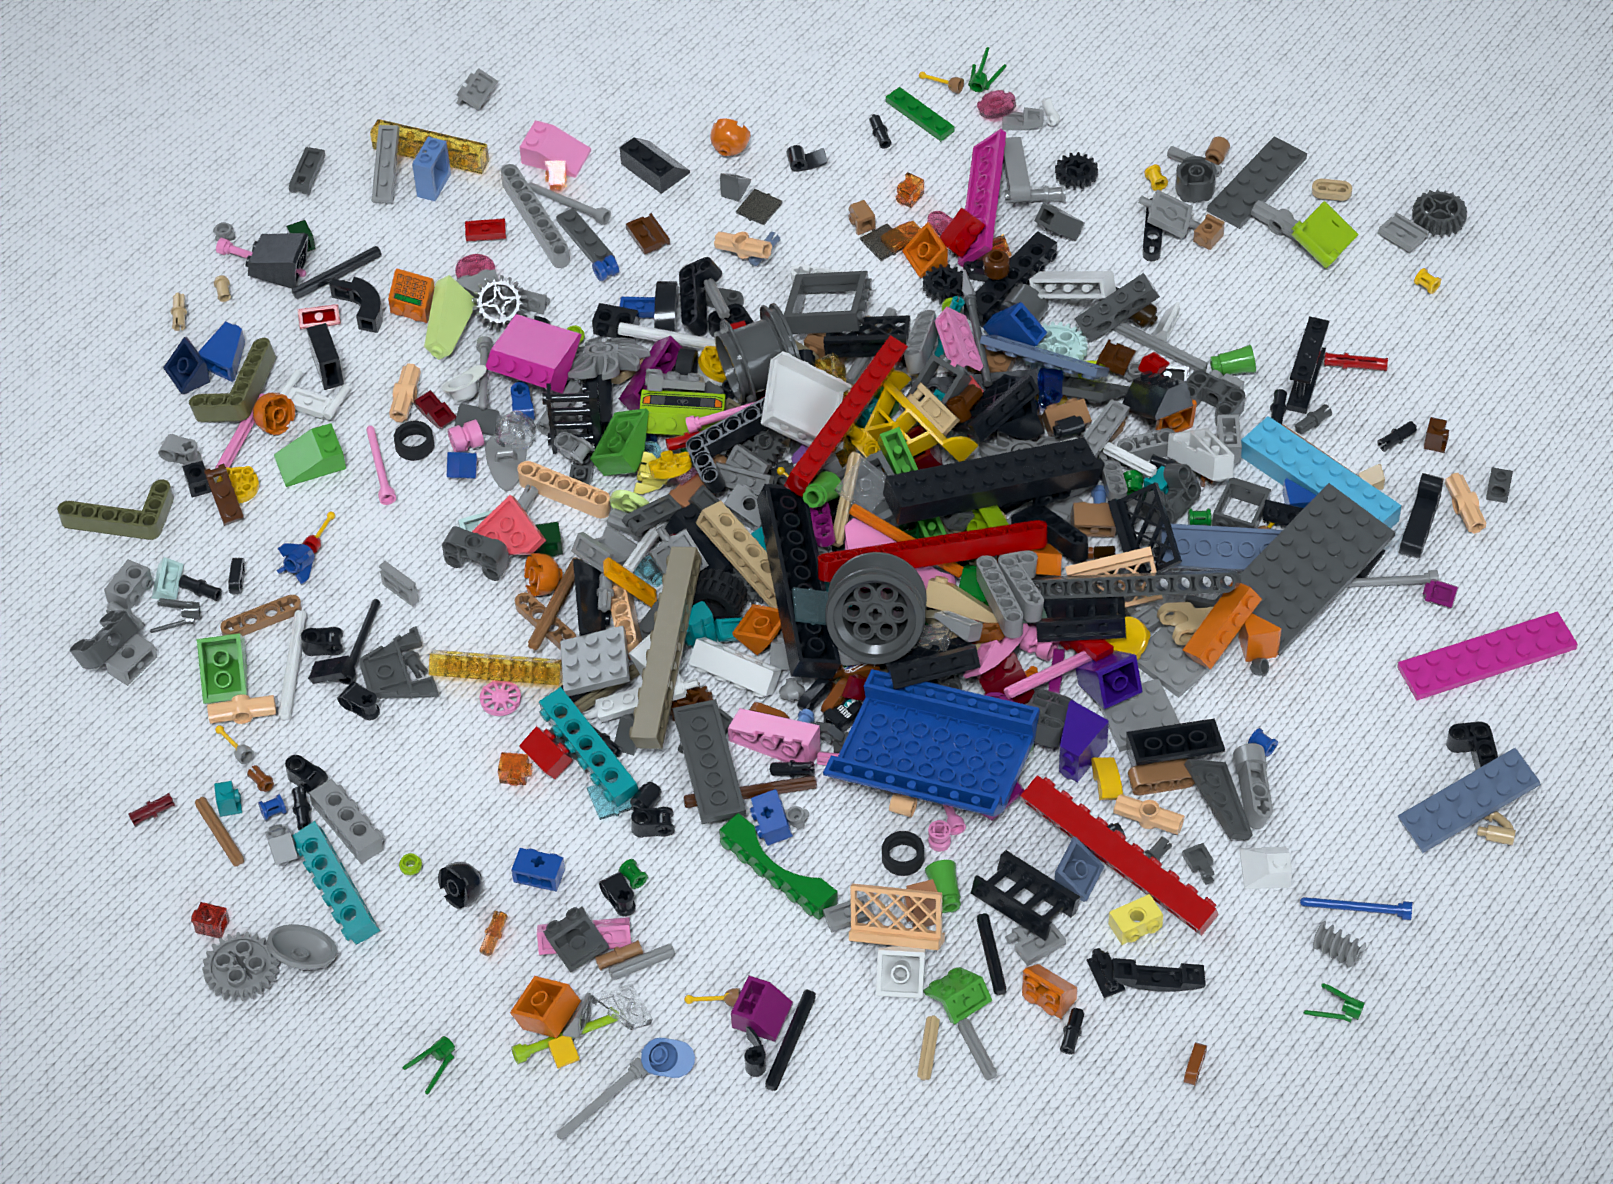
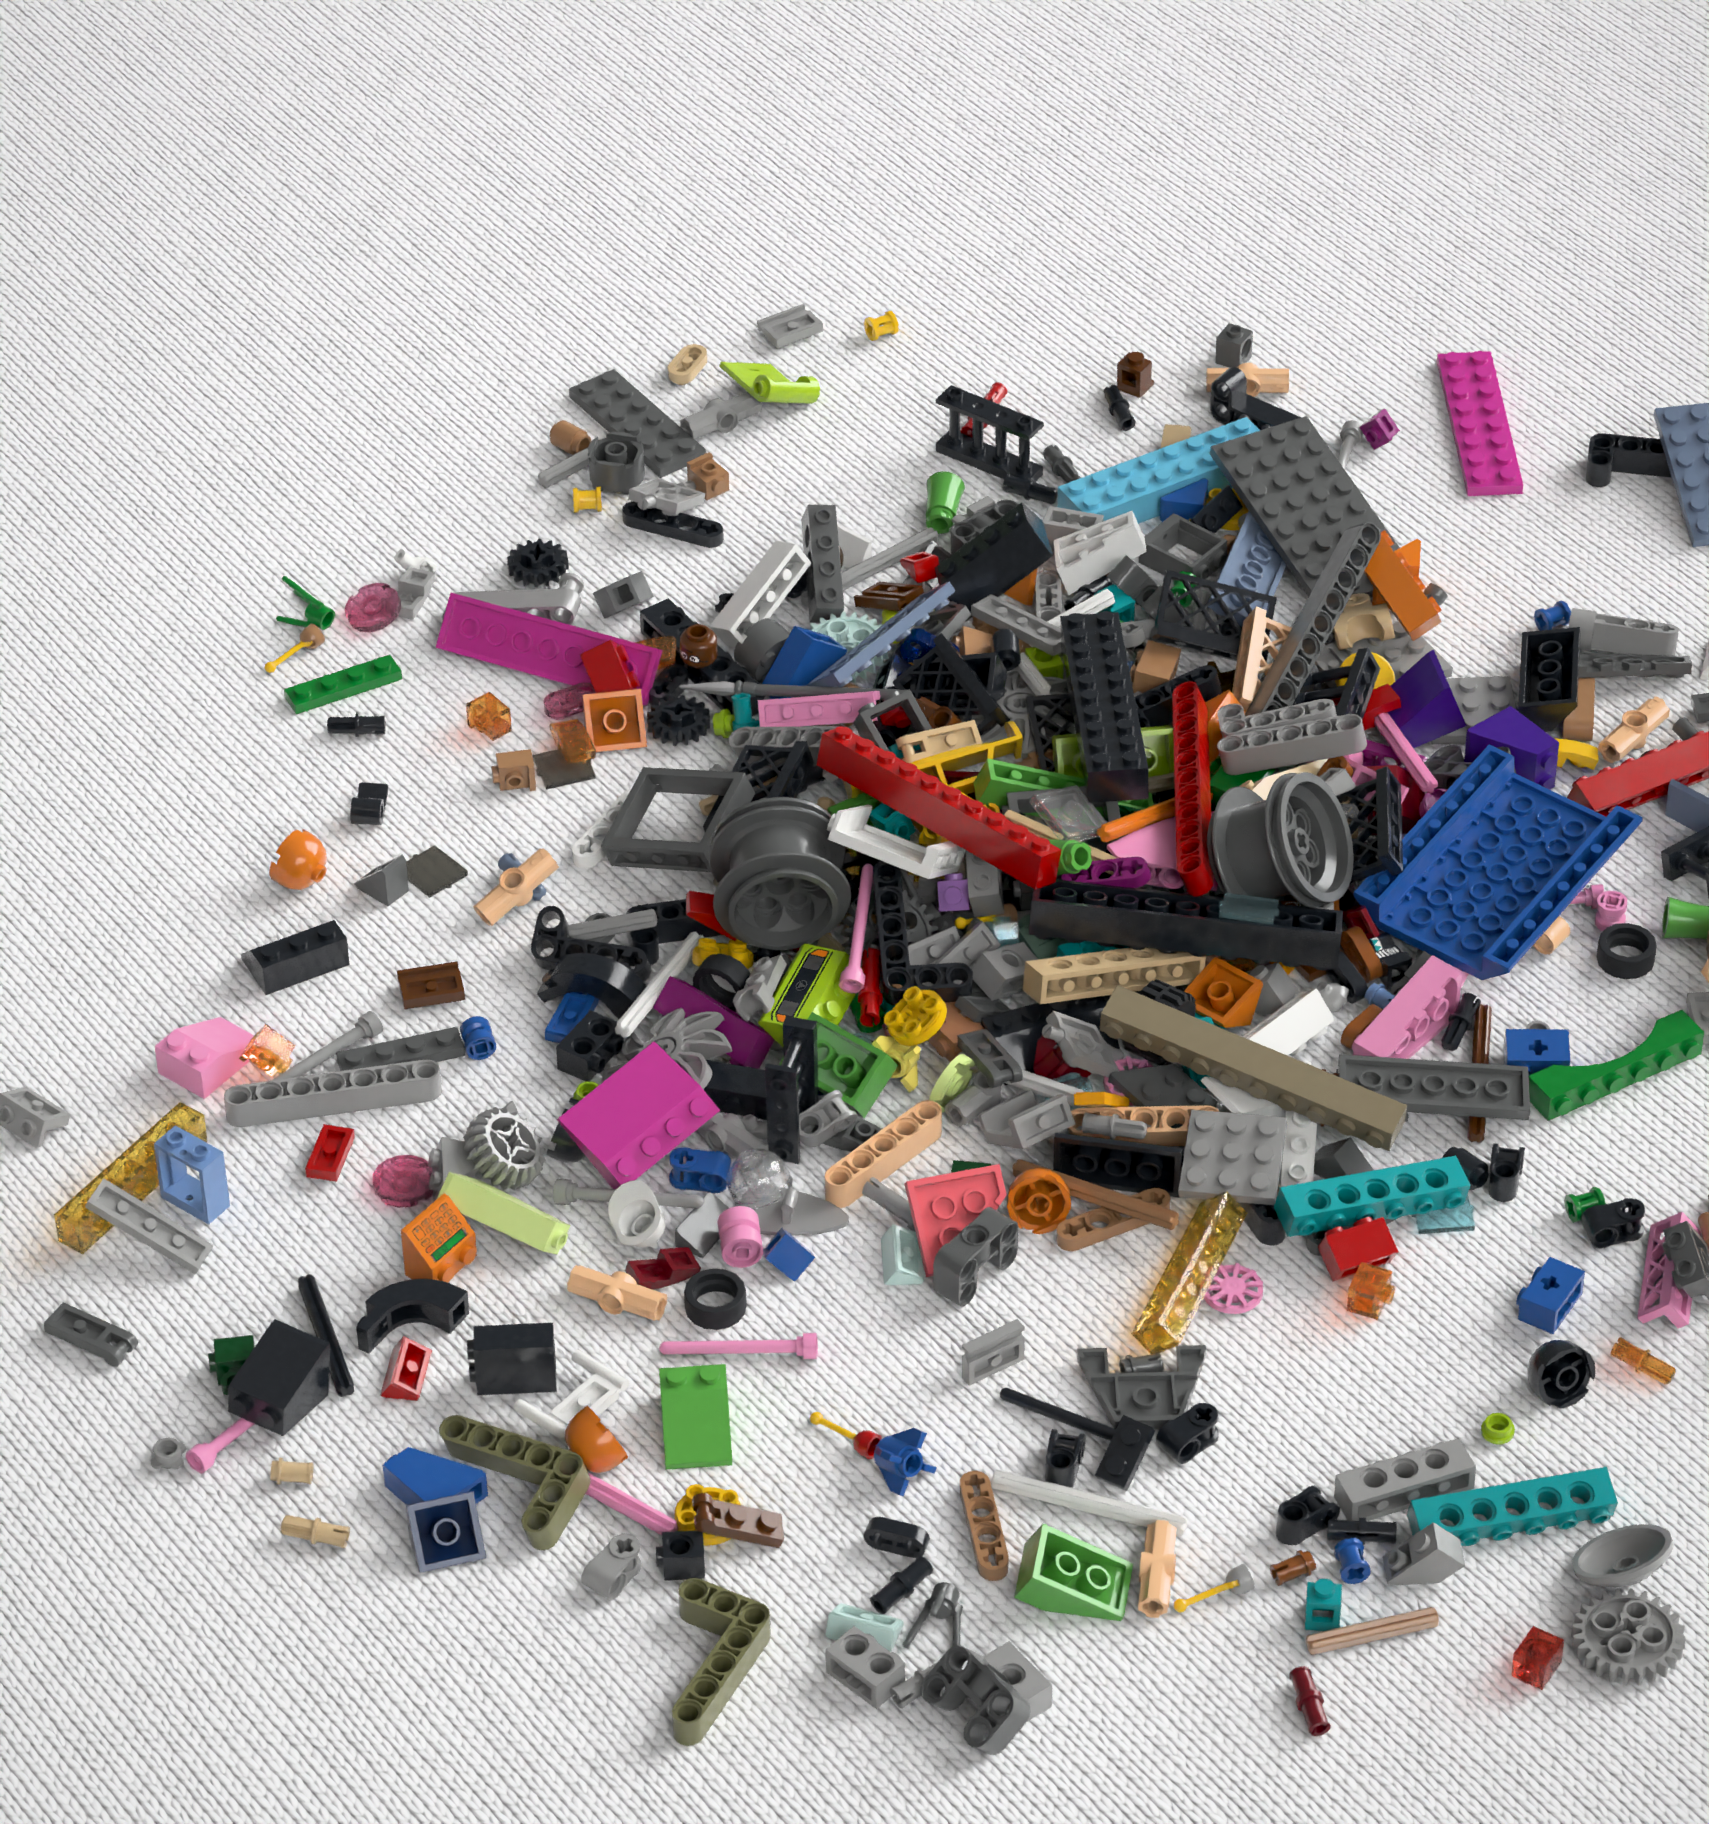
camera: 75 degrees left, 10 degrees down
(1439, 208) = (774, 288): dark grey gear -> none

